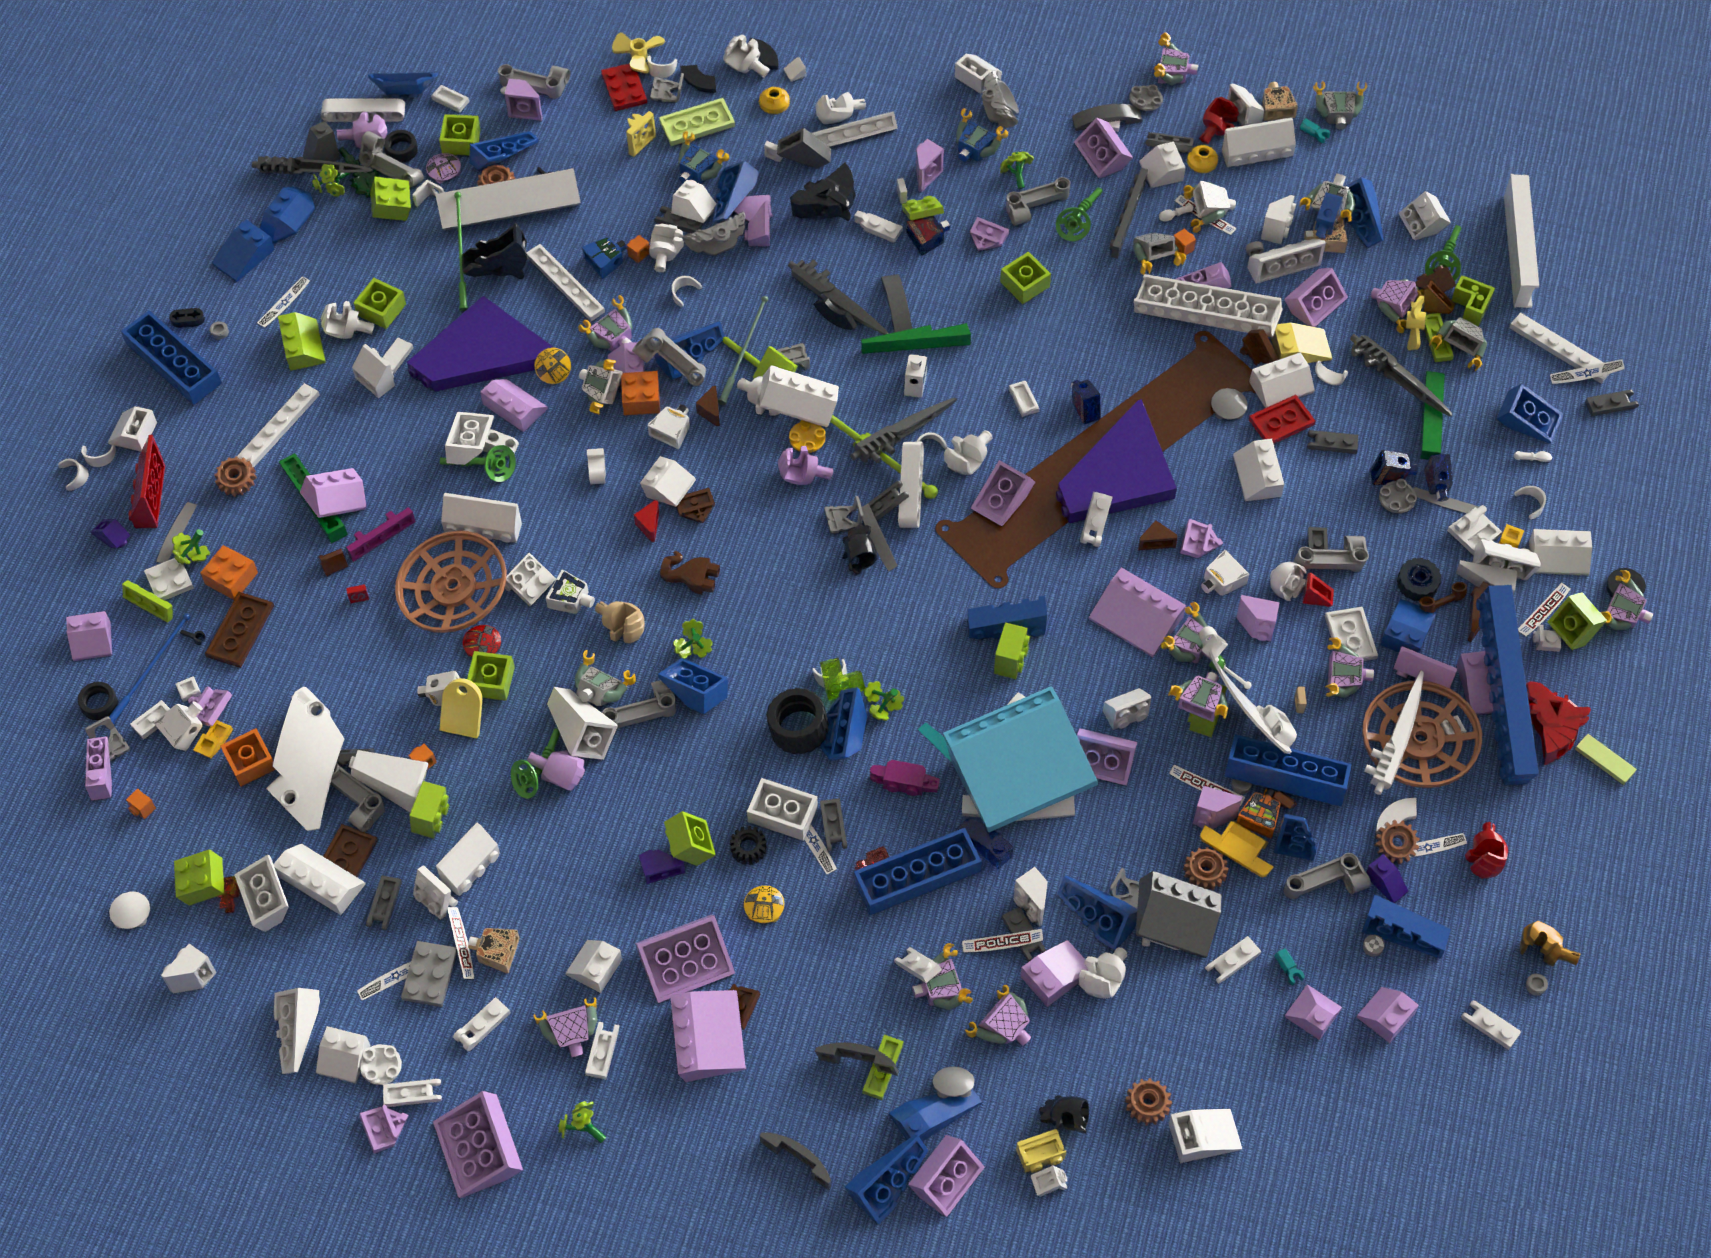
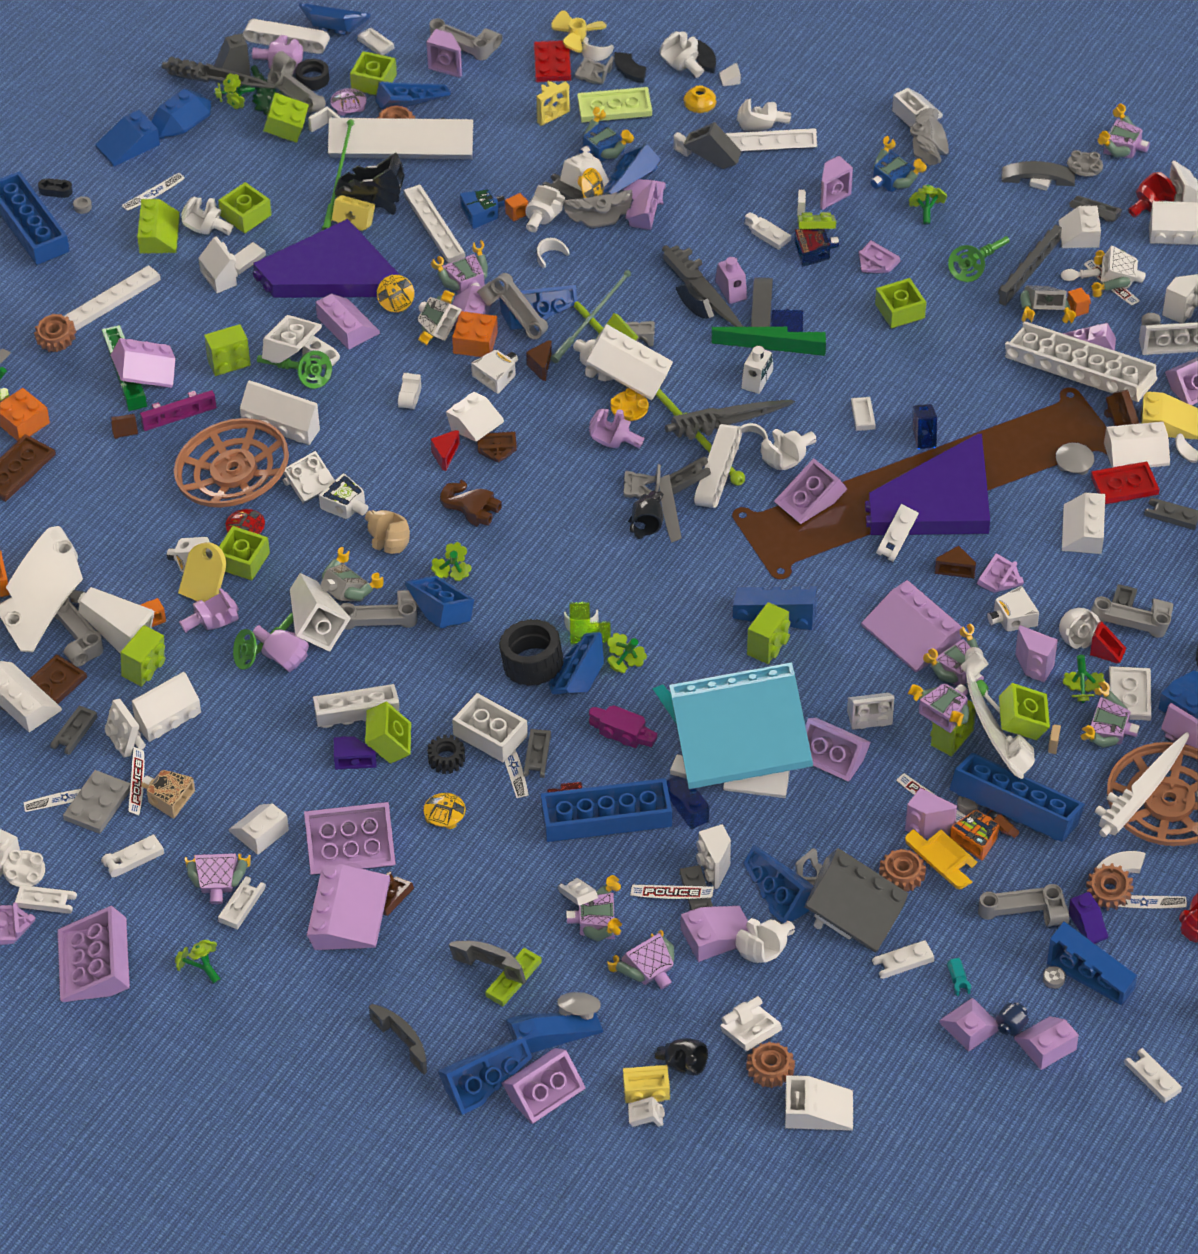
camera: 15 degrees right, 10 degrees down
(357, 593) = (138, 457): red tile -> none
(410, 461) = (227, 350): none -> lime brick
(481, 746) = (212, 613): none -> lavender piece
(486, 285) = (361, 210): none -> light yellow brick
(648, 814) = (352, 705): none -> white slope
(704, 213) = (591, 183): none -> yellow dish
(826, 197) = (721, 193): black animal -> none
(863, 286) = (730, 275): none -> lavender torso
(926, 315) = (788, 318): none -> clear blue piece
(1019, 202) = (918, 235): light grey piece -> none
(1103, 148) = (1023, 201): lavender slope -> none
(1119, 1066) = (749, 1024): none -> white plate
(1201, 163) = (1125, 234): yellow piece -> none
(1267, 680) = (1024, 711): none -> lime brick
(1295, 838) = (999, 856): blue wedge -> none
(1314, 633) = (1077, 680): none -> lime plant
(1351, 1000) = (1012, 1019): none -> dark blue head

